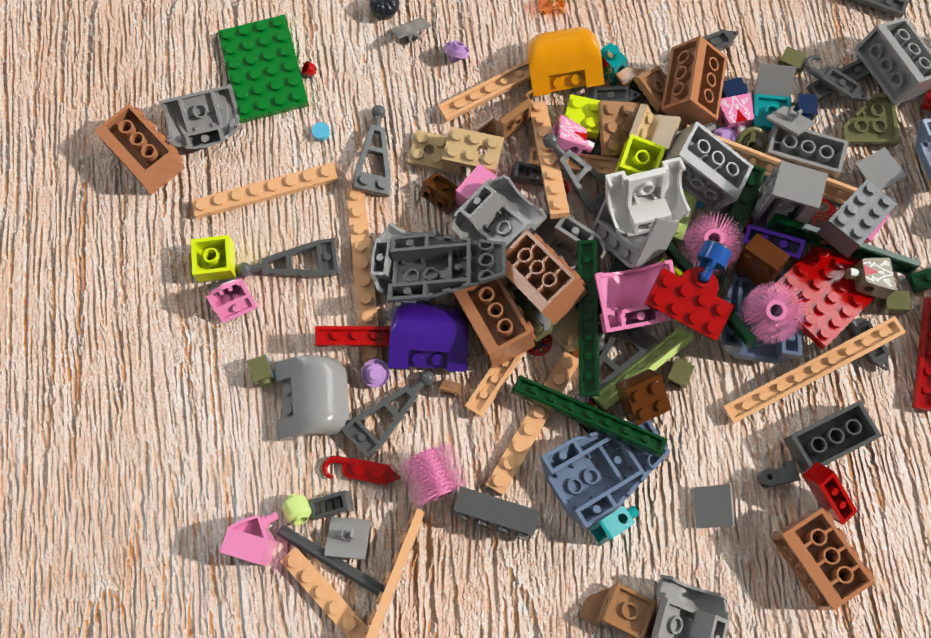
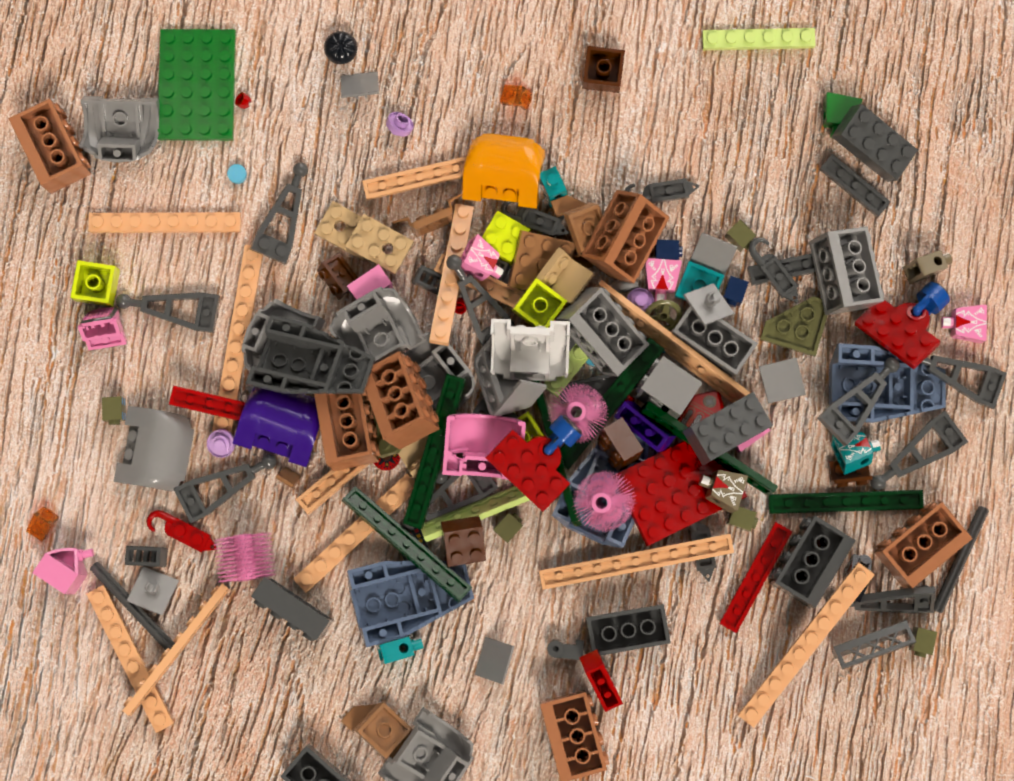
camera: 15 degrees right, 10 degrees up
(216, 502) = (41, 523): none -> clear orange bracket
(296, 509) = (112, 551): yellowish green head -> none

